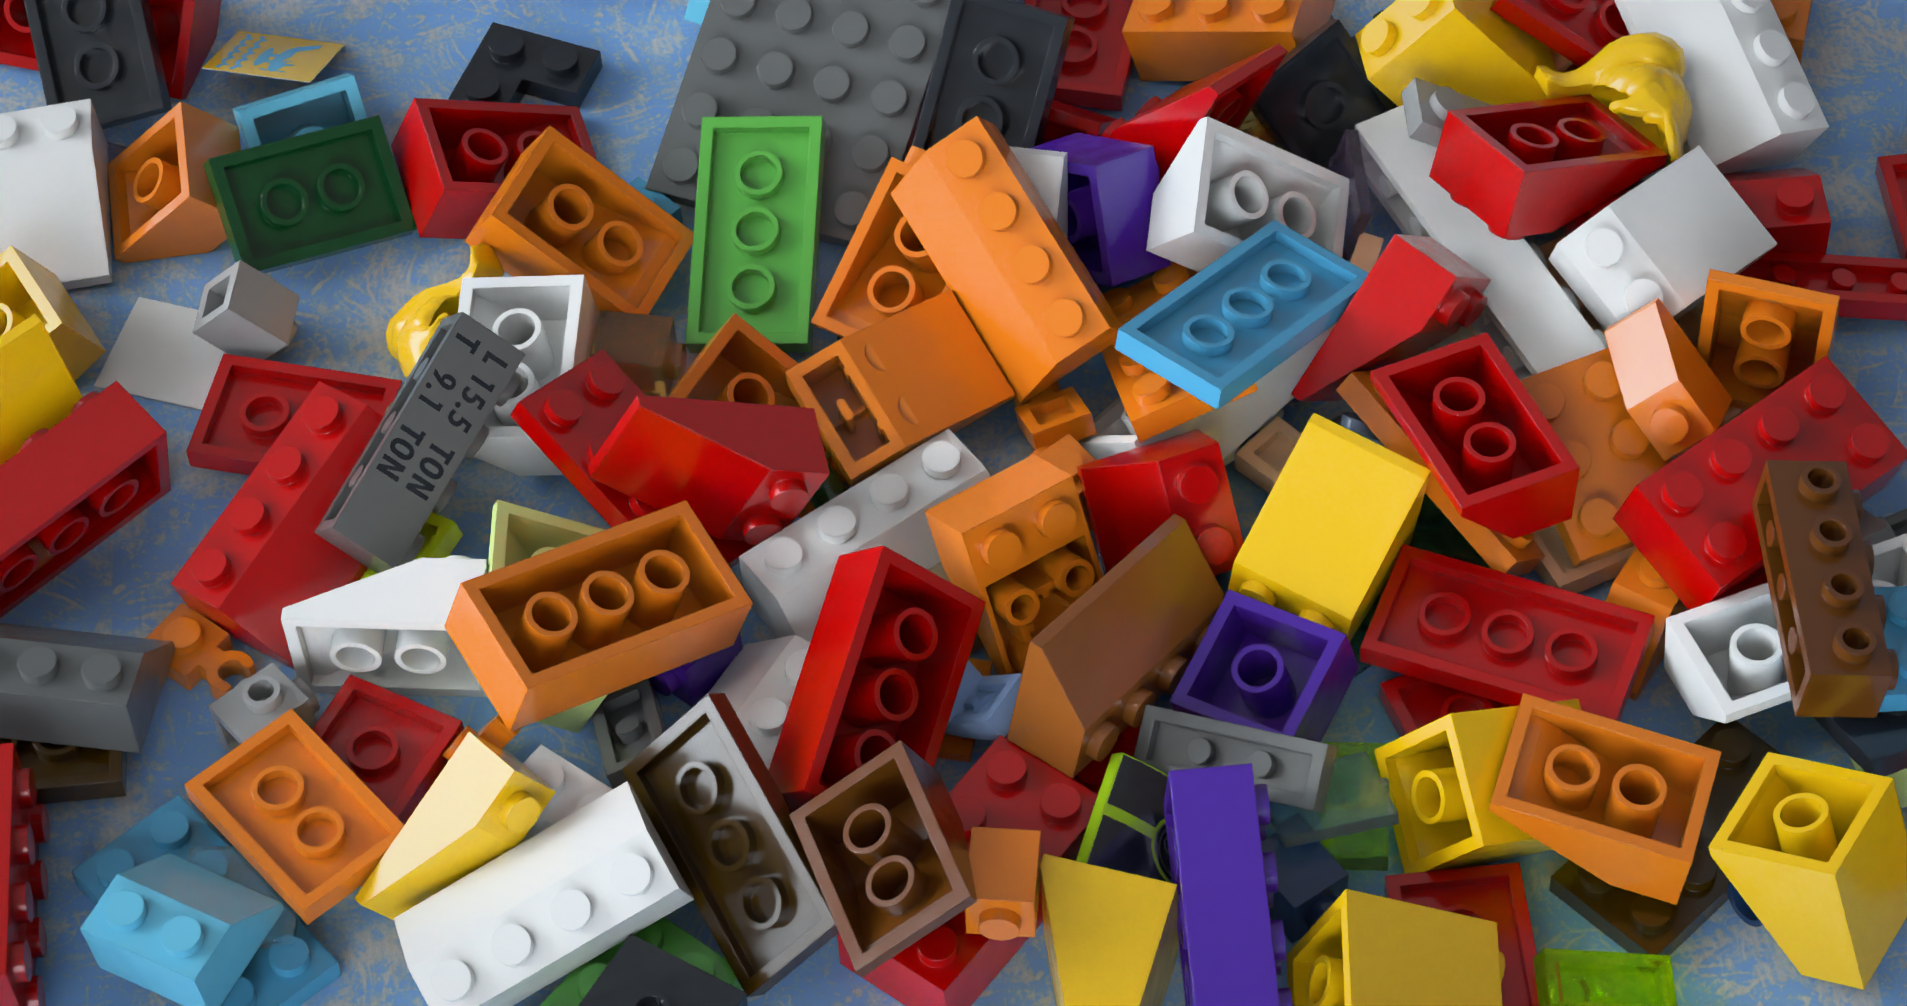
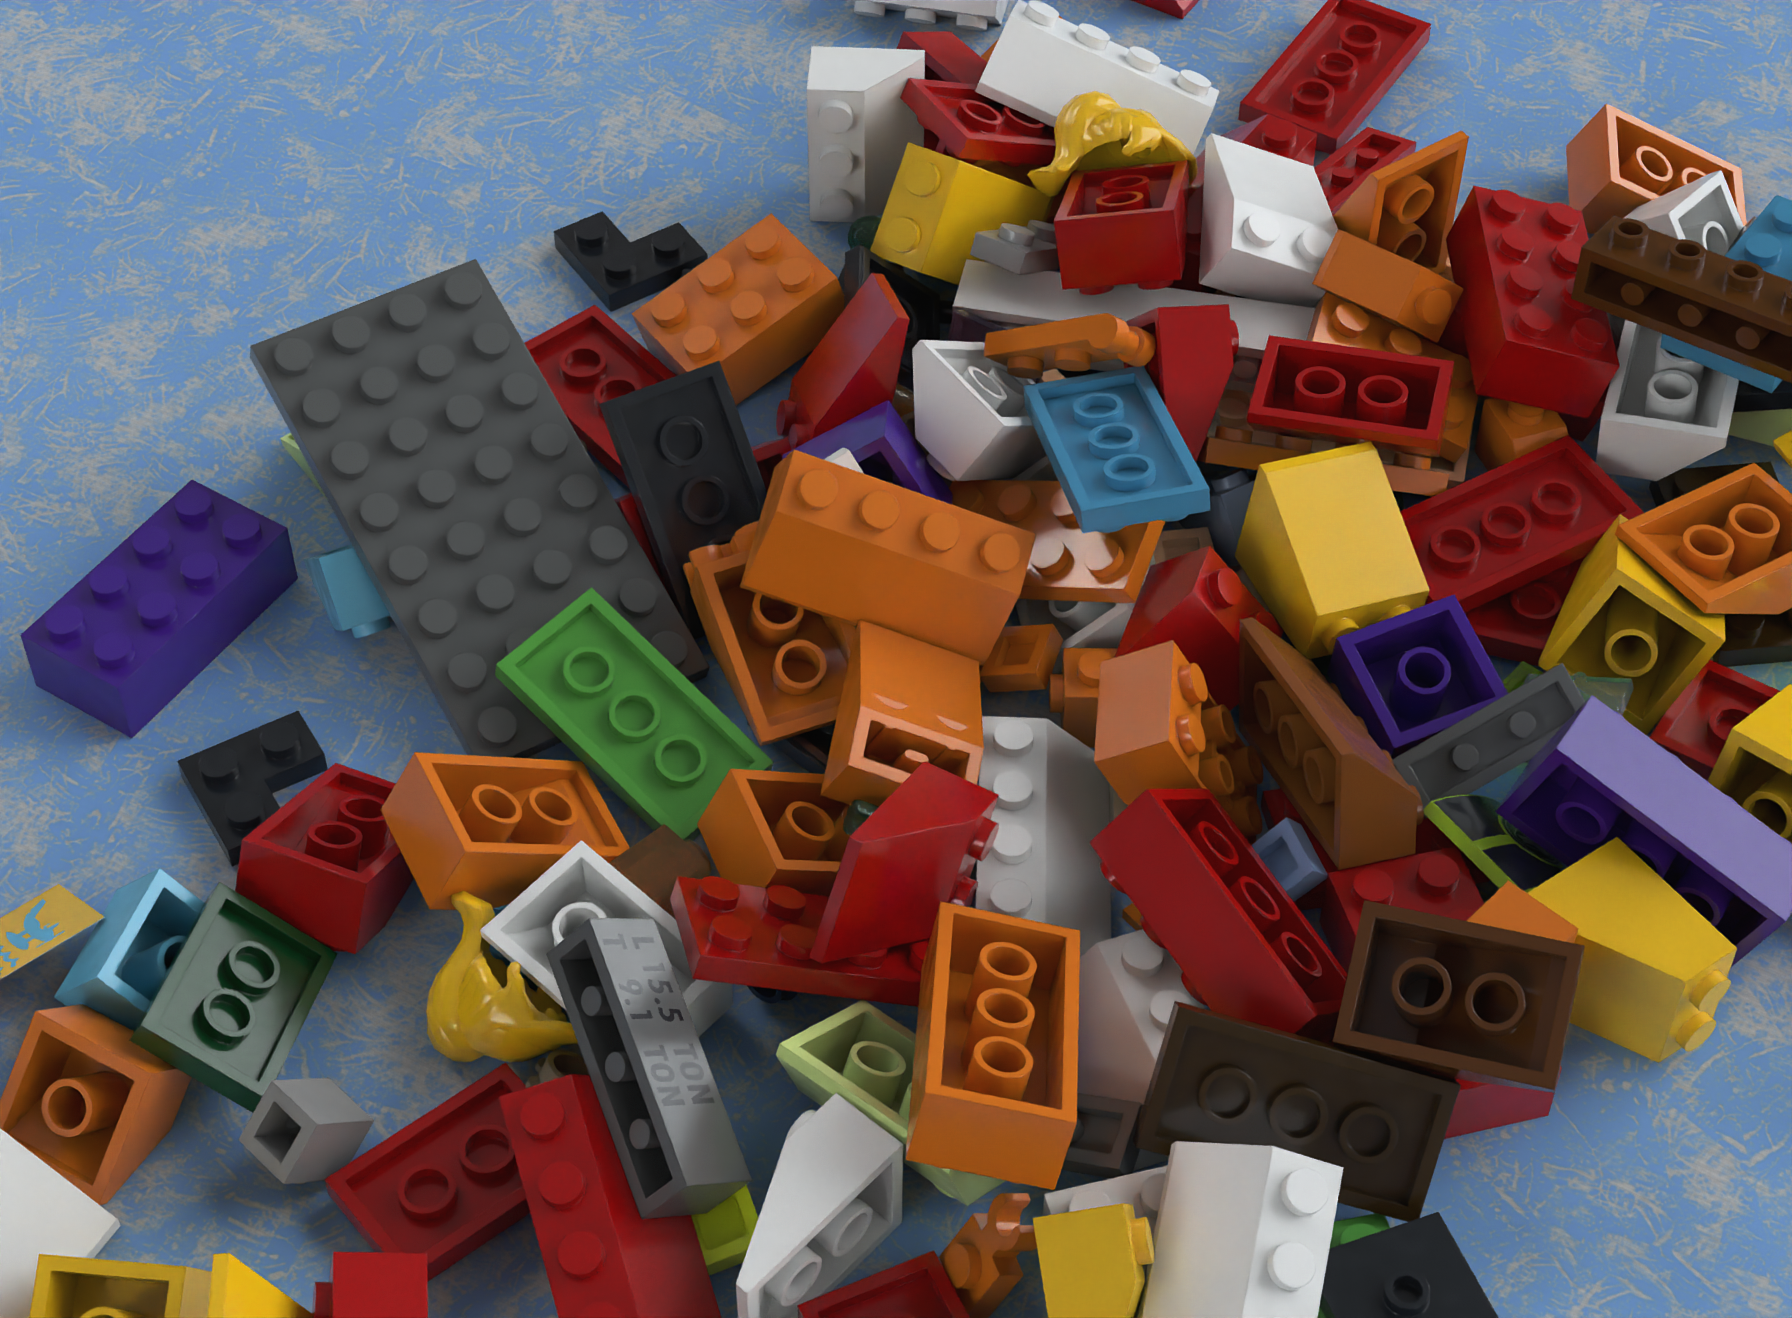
camera: 55 degrees left, 5 degrees down
(162, 356) = (258, 1221): white sticker -> none
(1340, 218) = (1069, 345): none -> orange plate

